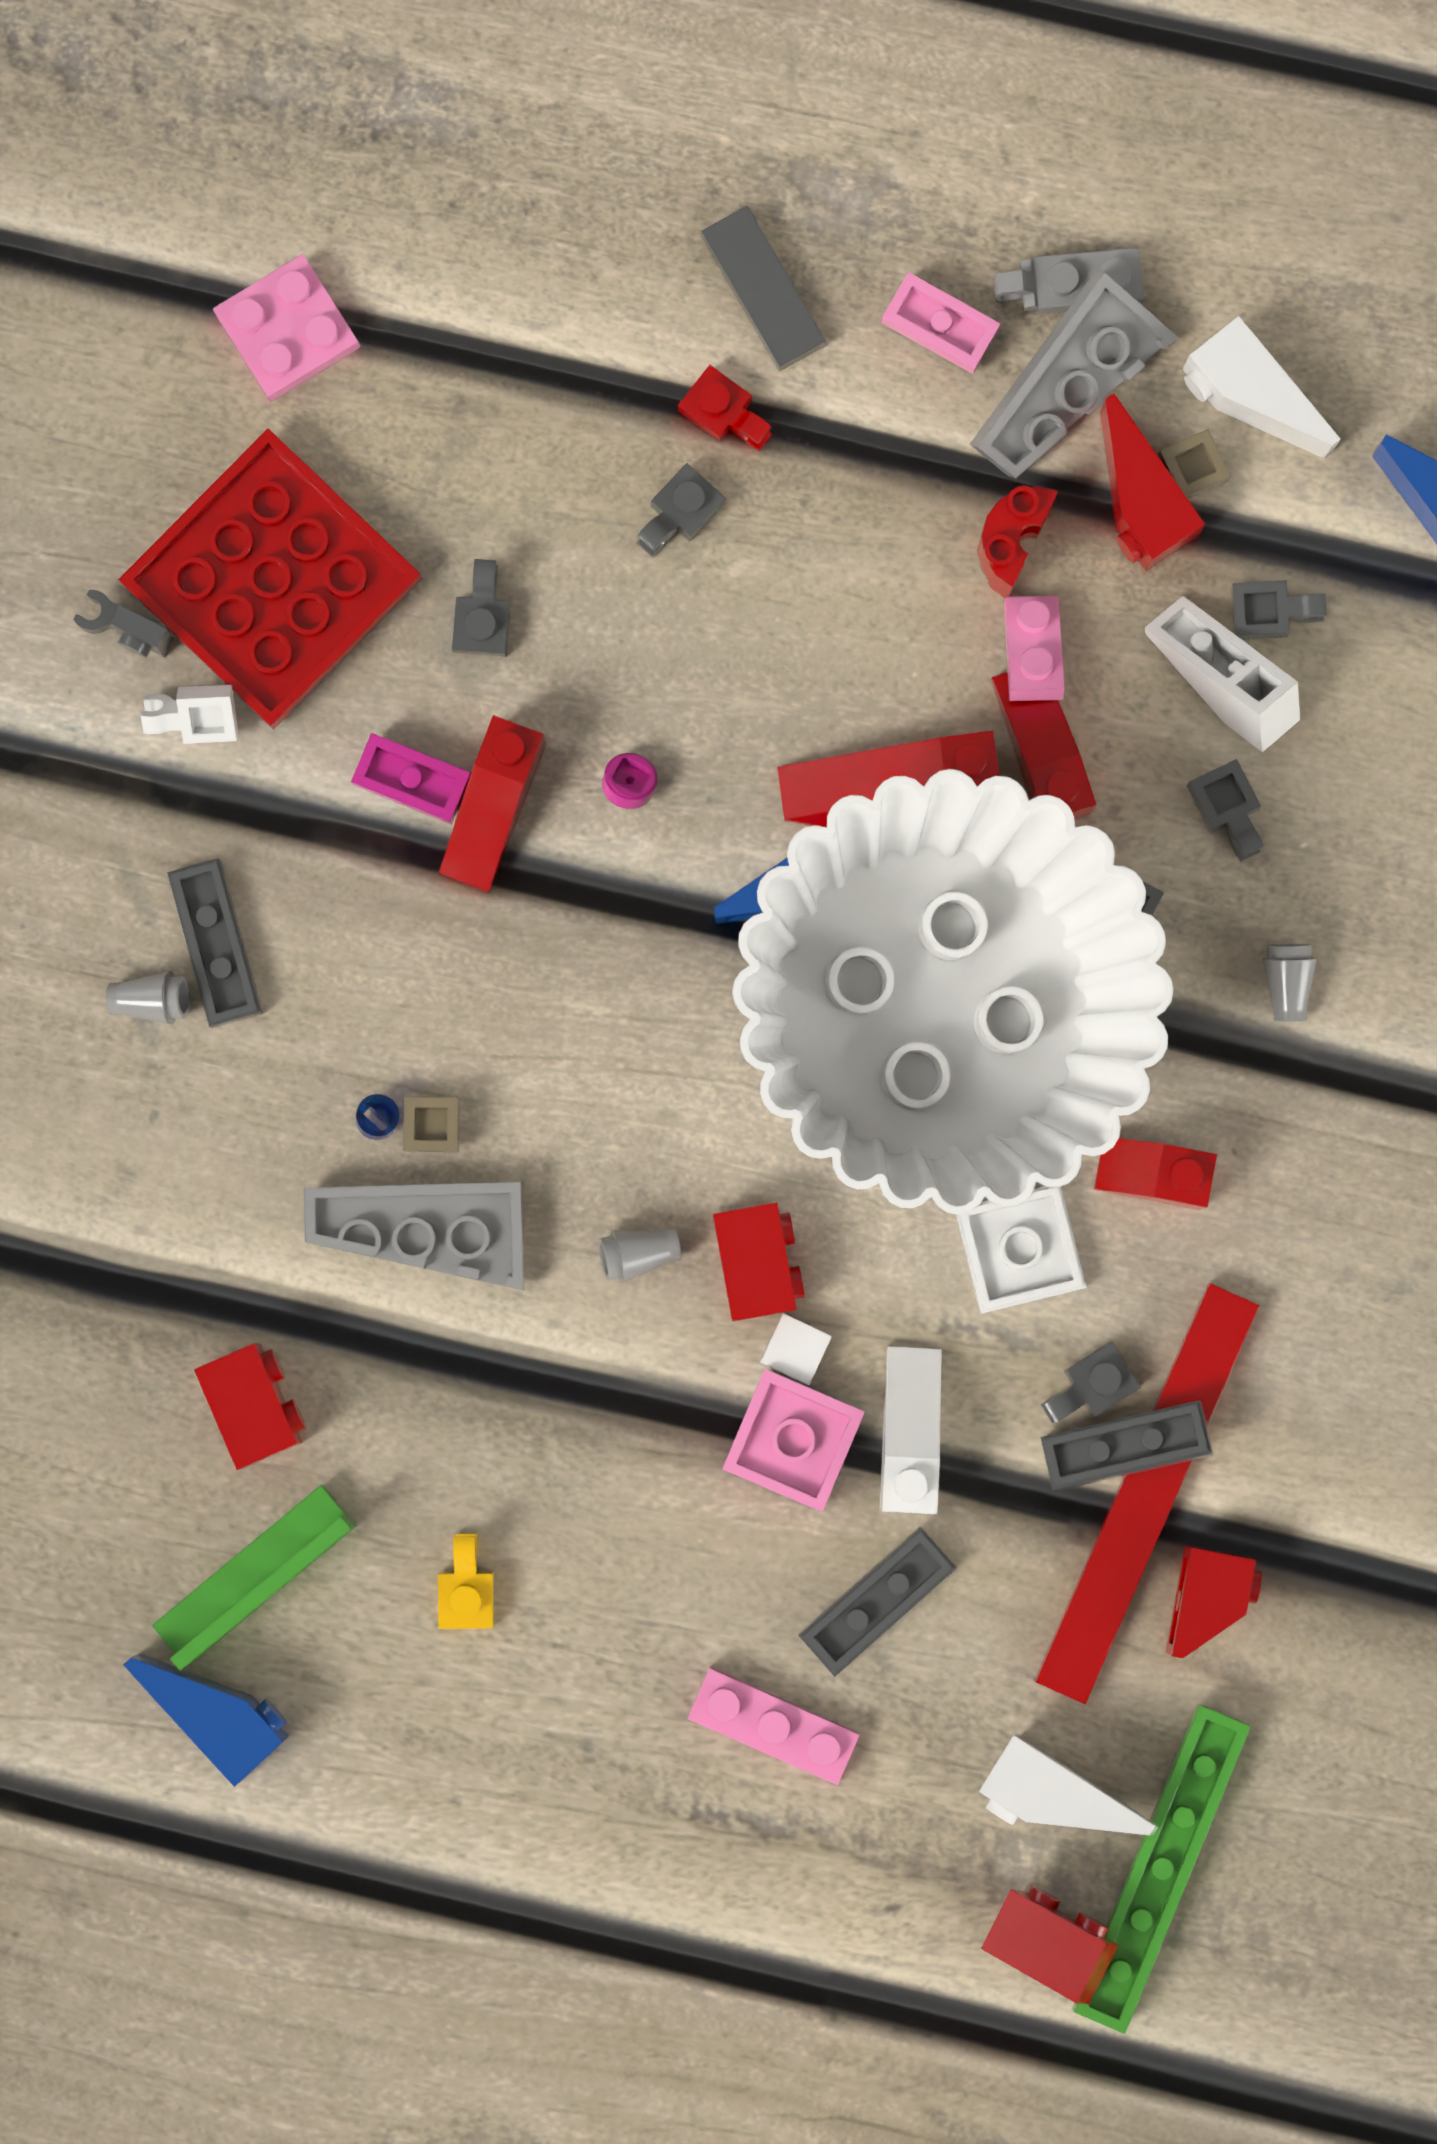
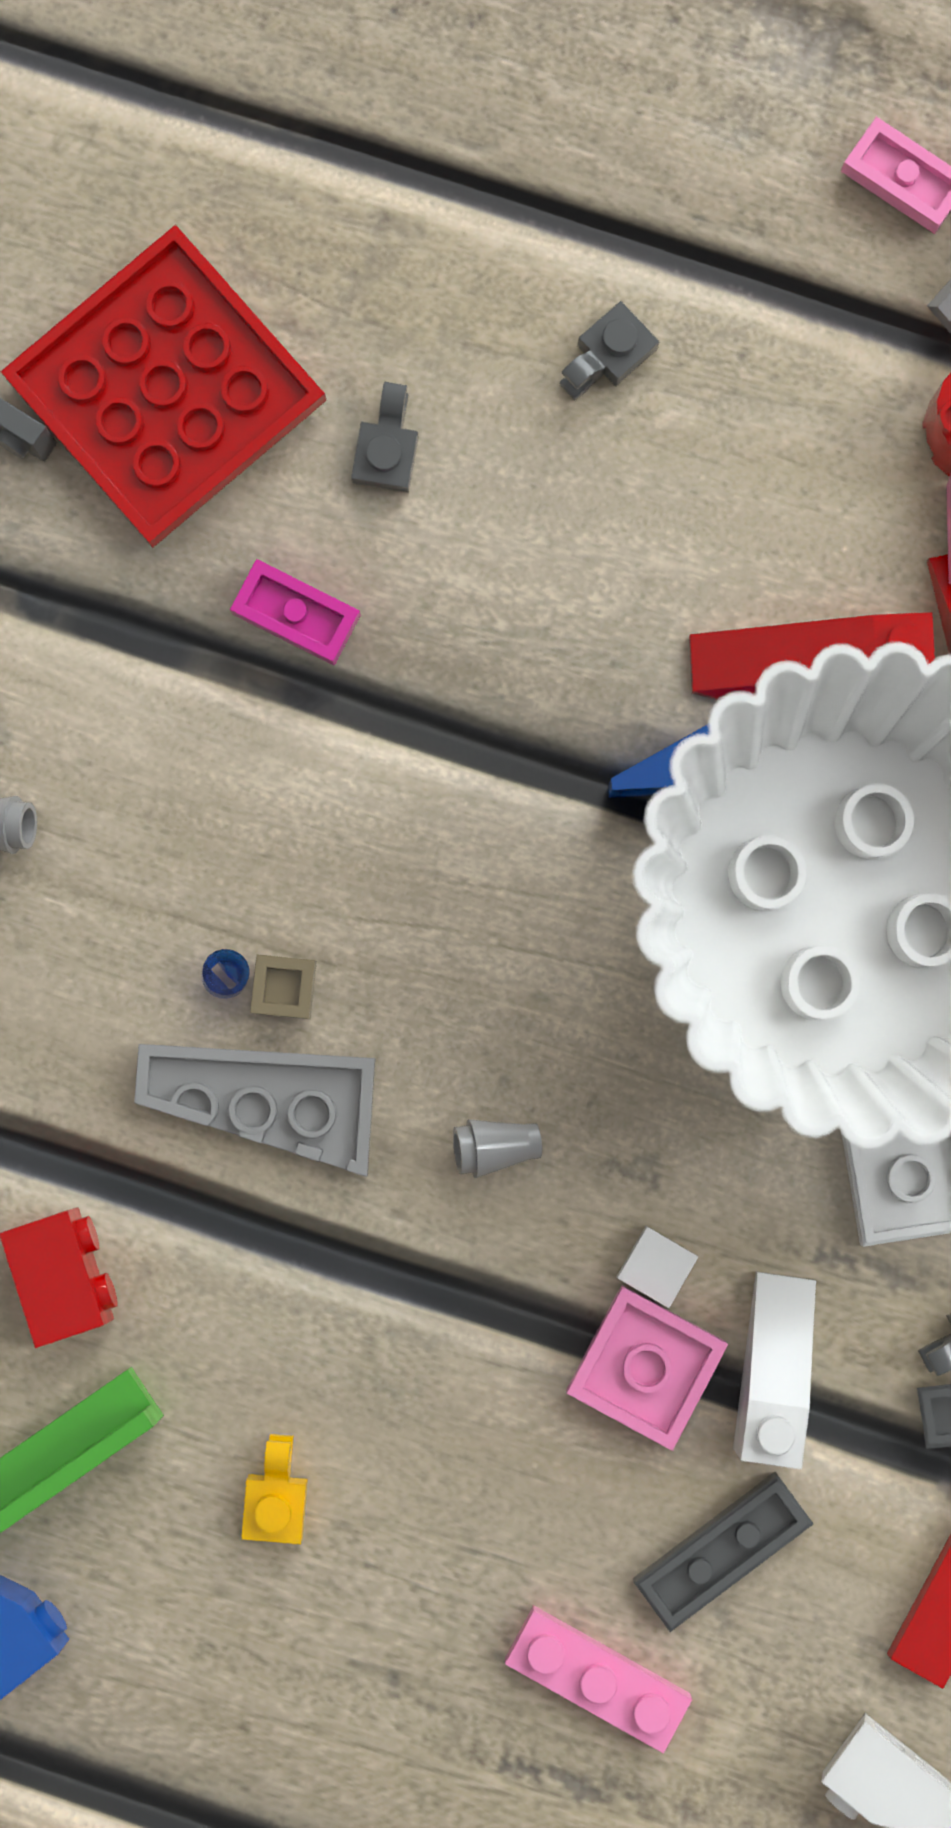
camera: 10 degrees right, 0 degrees up
(199, 712) = (73, 520): white plate -> none
(215, 943) = (69, 770): dark grey tile -> none
(286, 328) = (206, 123): bright pink plate -> none
(492, 802) = (380, 644): red slope -> none
(629, 781) = (529, 635): dark pink tile -> none
(721, 406) = (662, 245): red plate -> none
(757, 1261) = (624, 1169): red brick -> none
(763, 288) = (717, 124): dark grey tile -> none

